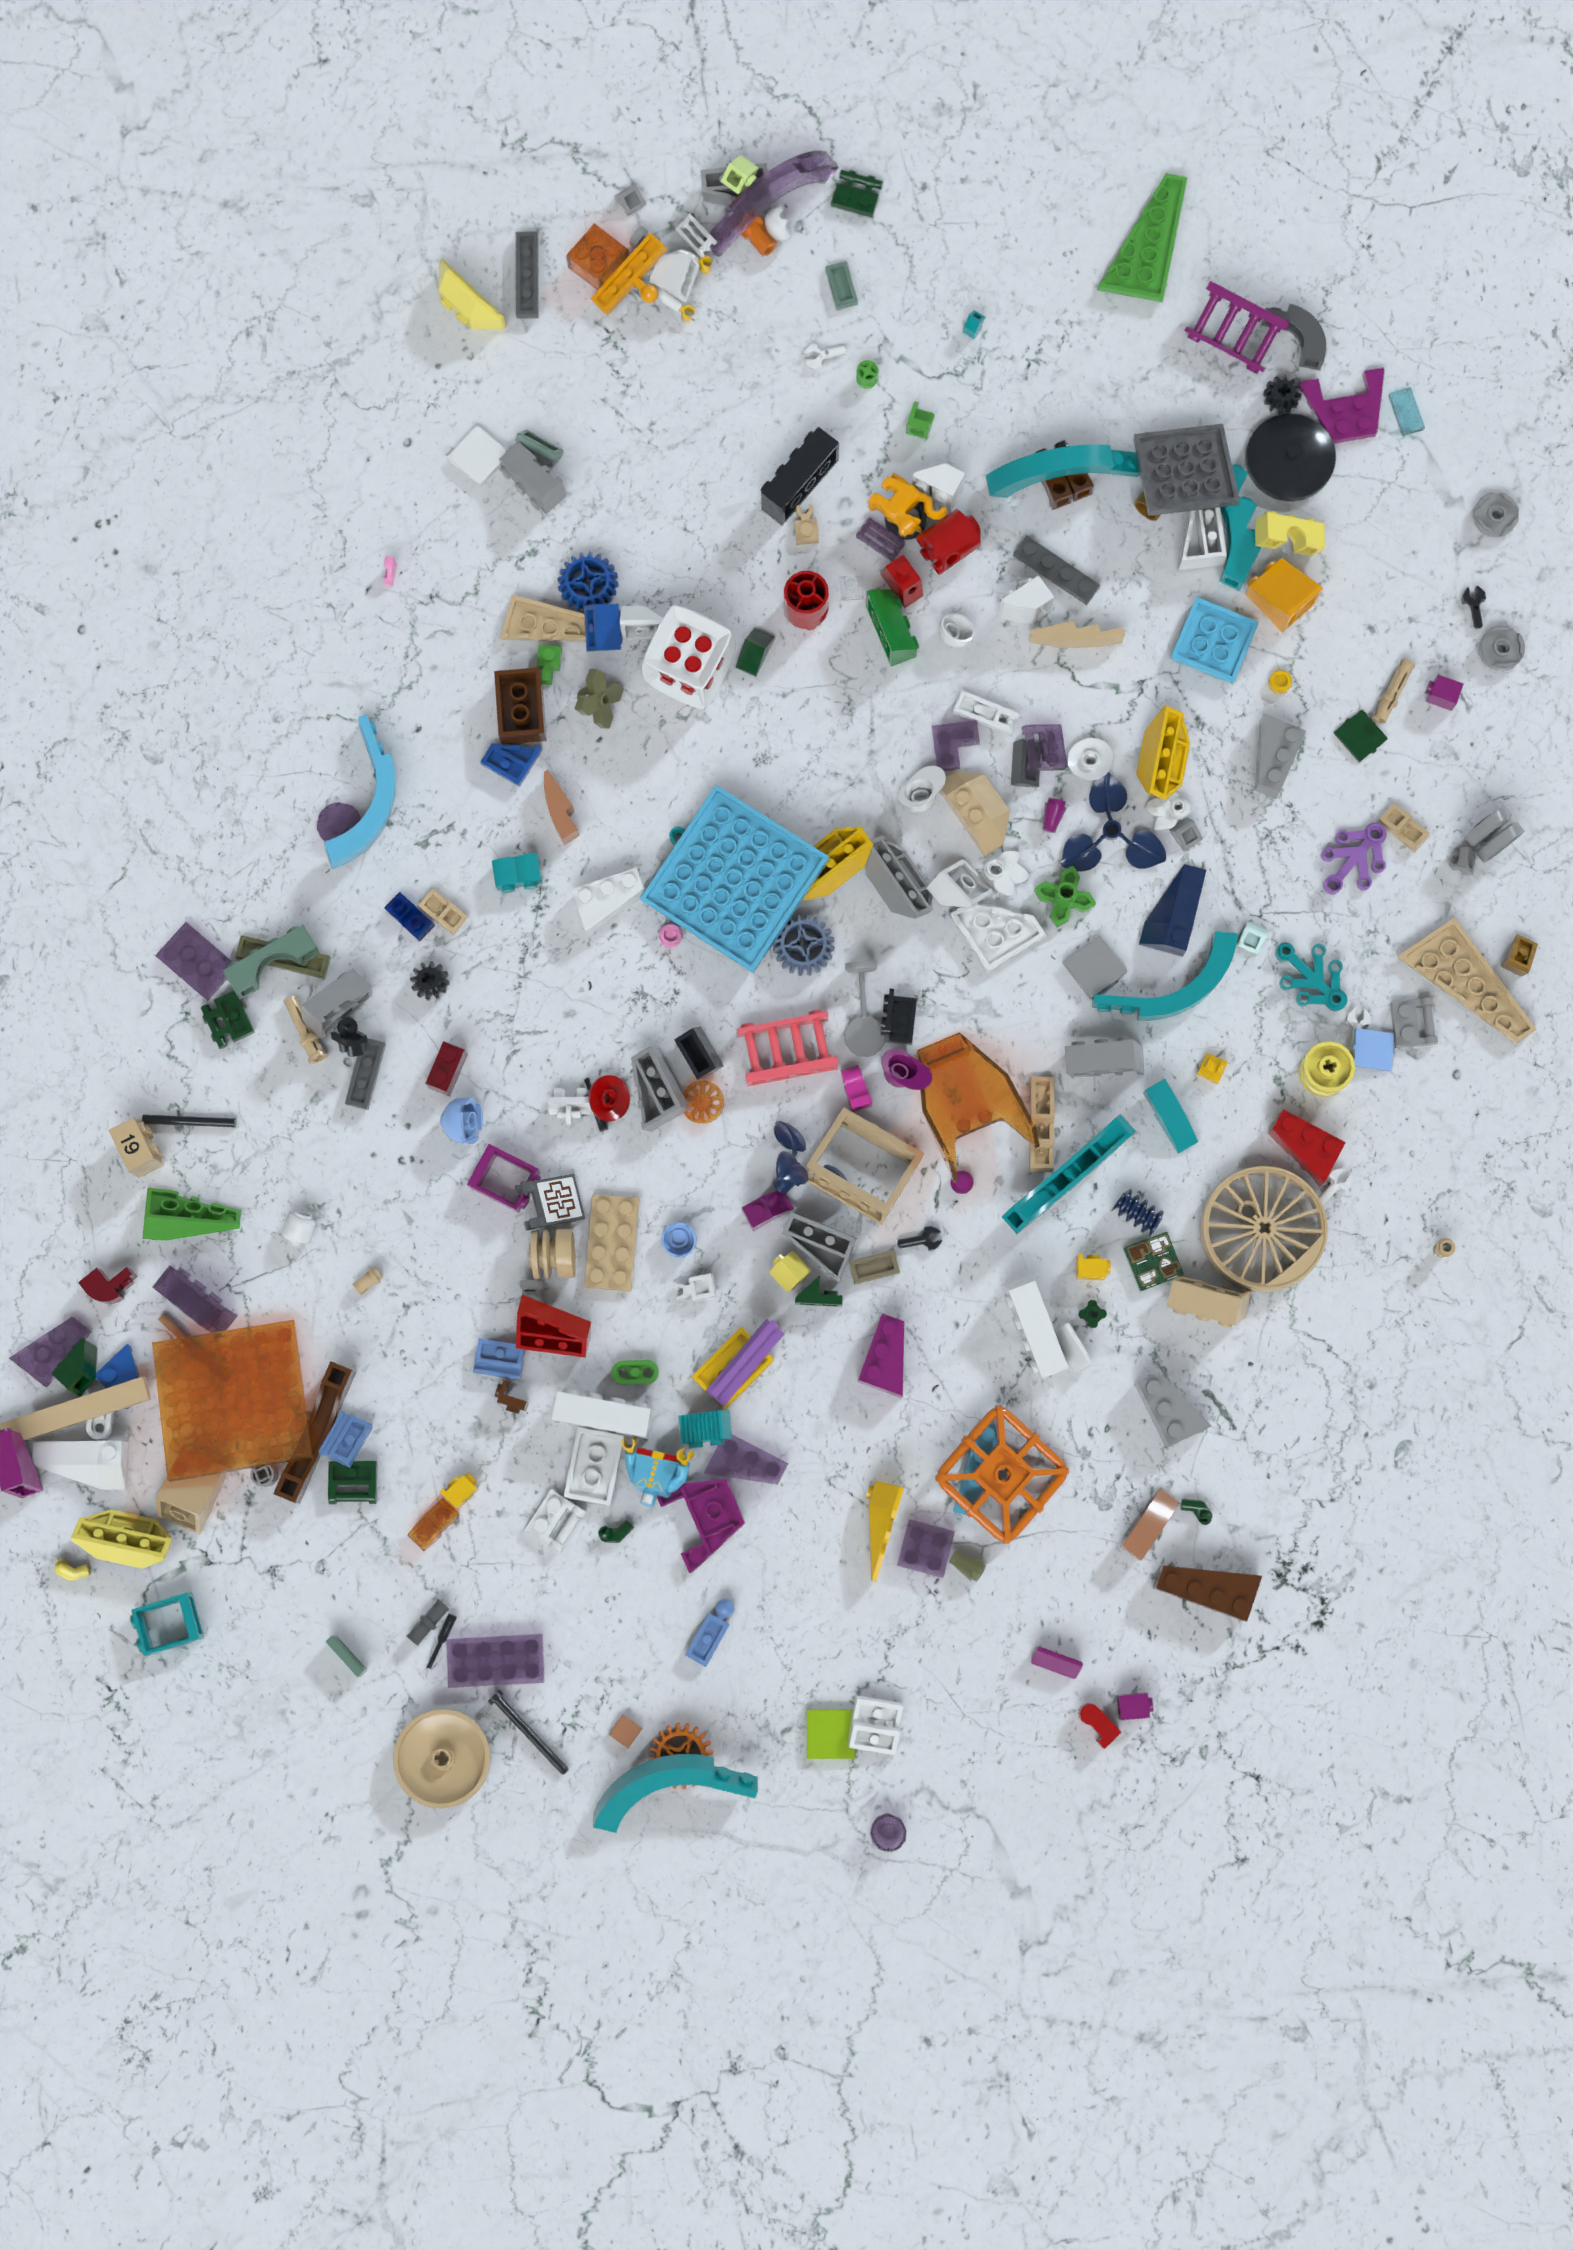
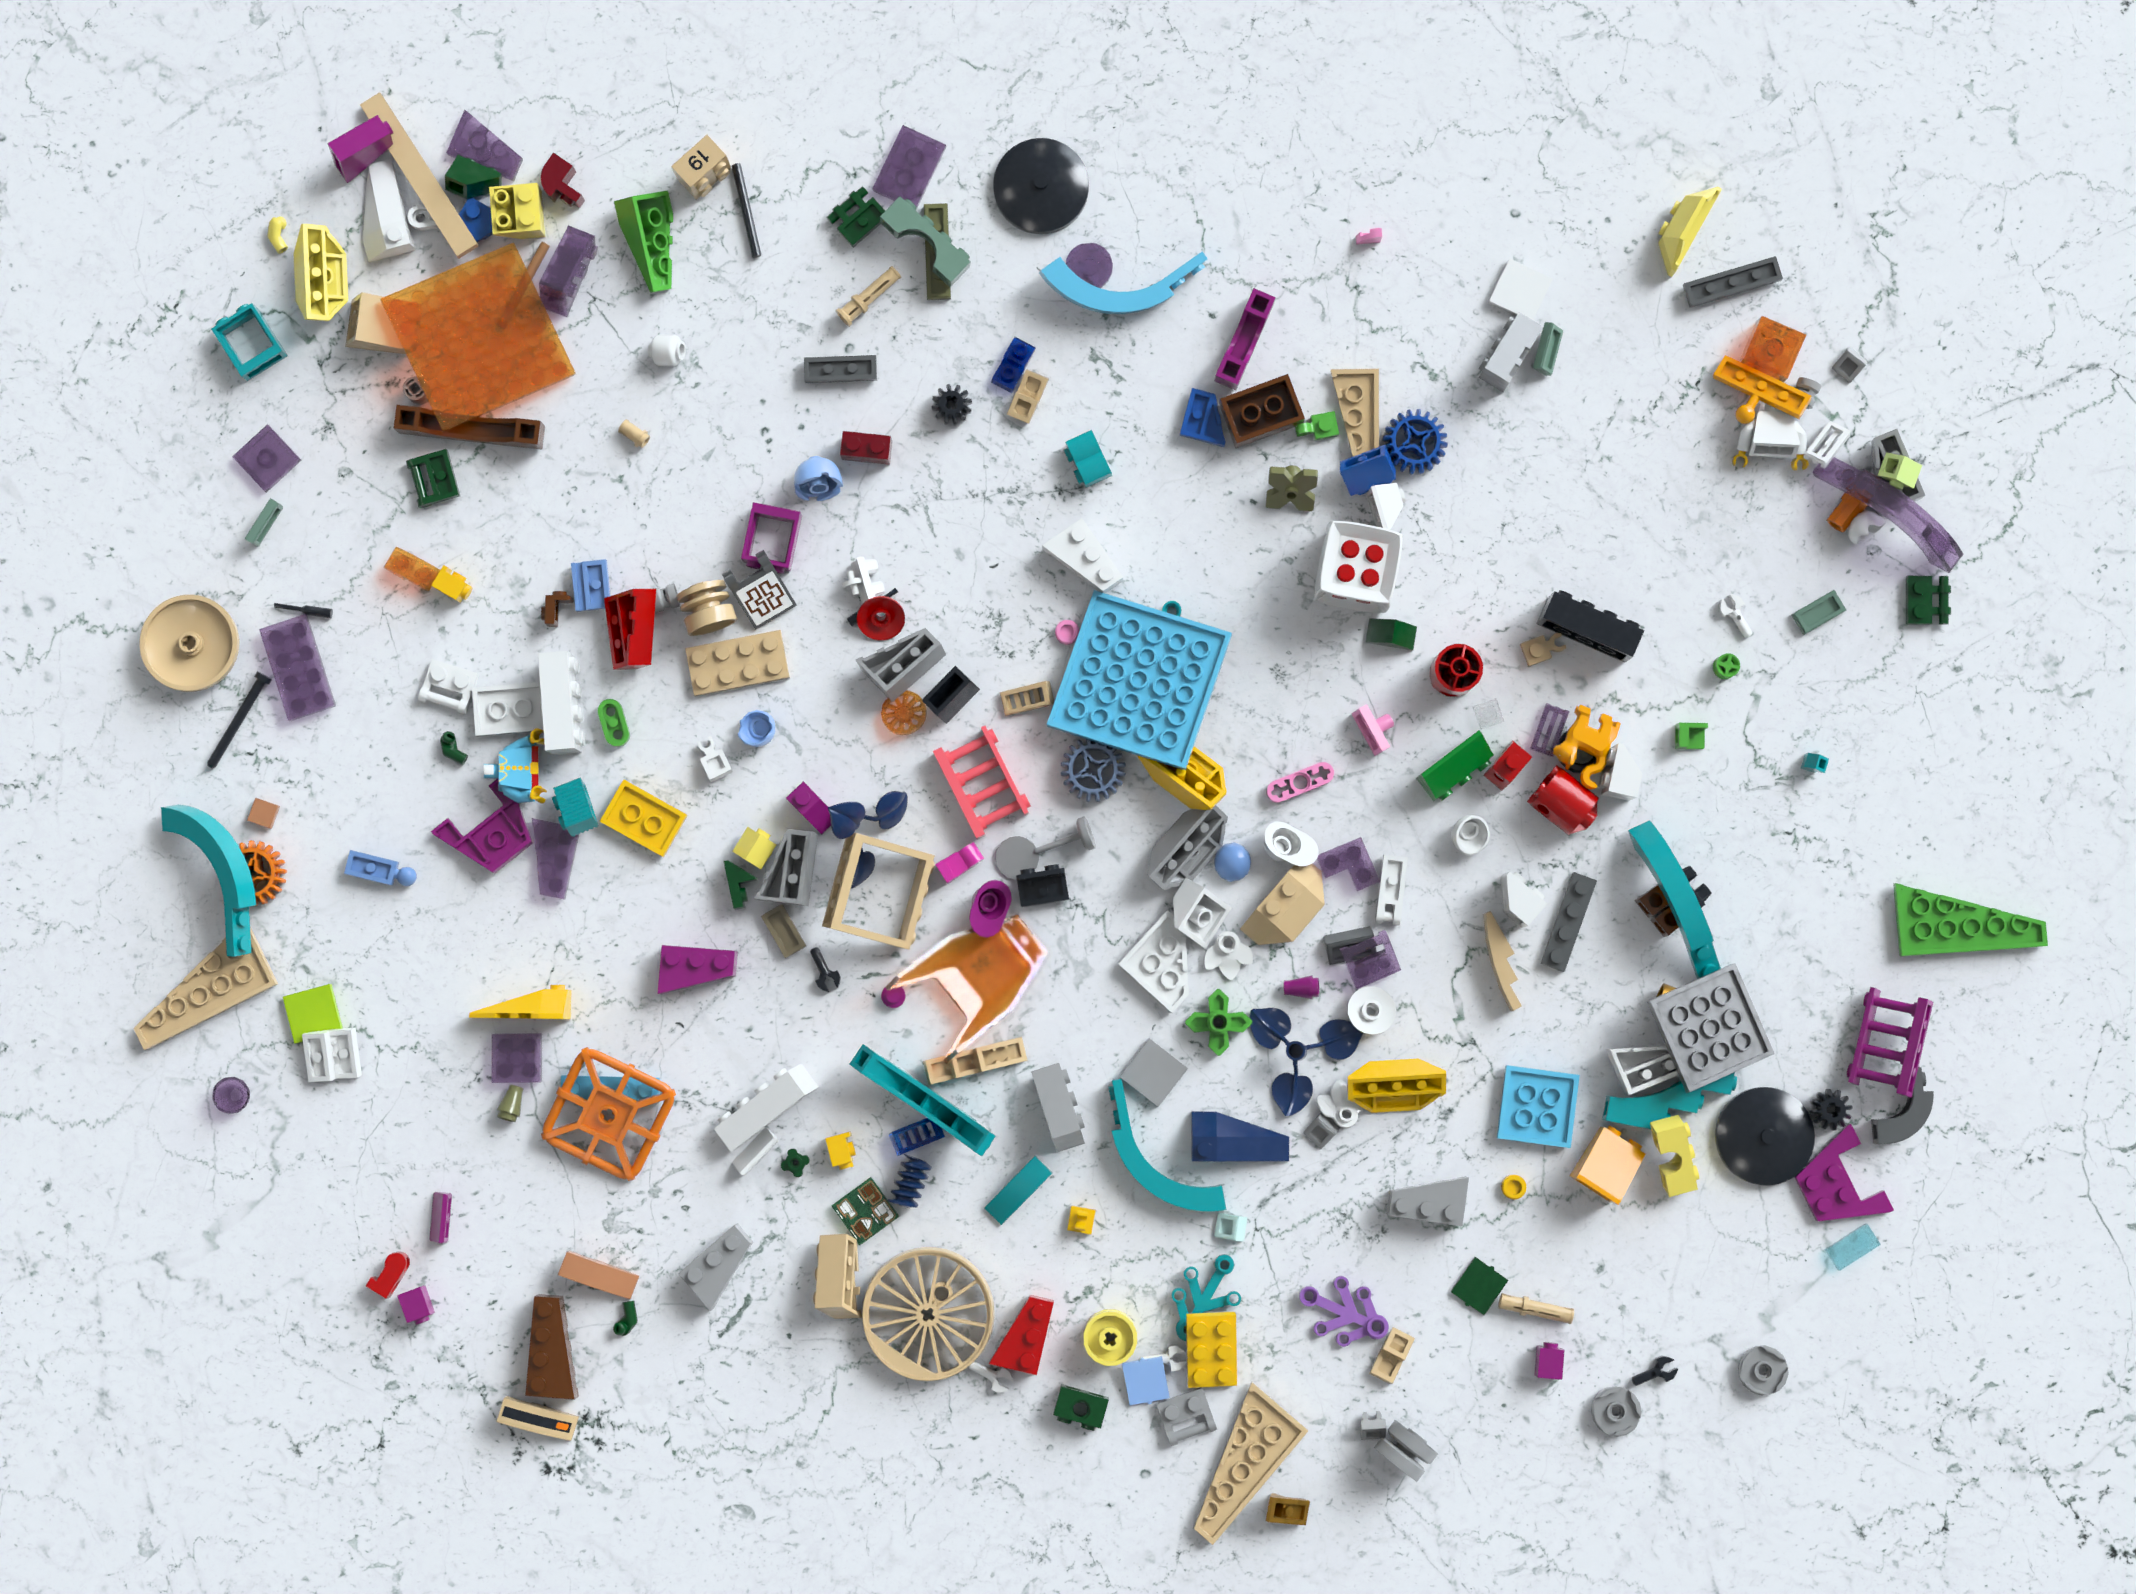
camera: 75 degrees right, 5 degrees up
(122, 1332) = (517, 211): none -> light yellow slope
(251, 847) = (1041, 186): none -> black dish
(284, 1638) = (267, 458): none -> clear purple plate
(335, 1002) = (901, 318): light grey wedge -> none
(345, 1439) = (472, 459): medium blue plate -> none
(349, 1037) = (869, 342): black hips -> none
(428, 1622) = (317, 591): dark grey pin -> none
(460, 712) = (1245, 339): none -> magenta arch
(559, 809) = (1165, 481): nougat slope -> none
(721, 968) = (1047, 692): none -> tan slope
(745, 1362) = (649, 828): medium lavender fence -> none
(782, 1832) = (207, 991): none -> tan wing
(837, 689) = (1373, 729): none -> bright pink tile
(860, 774) = (1314, 770): none -> bright pink beam
(922, 845) = (1232, 862): none -> medium blue hair
(1097, 1215) = (939, 1134): none -> clear blue slope
(1270, 1618) = (537, 1418): none -> tan slope
(1360, 982) = (1211, 1349): none -> yellow plate
(1372, 1122) = (1069, 1396): none -> dark green brick
(1449, 1249) = (957, 1509): tan pin -> none

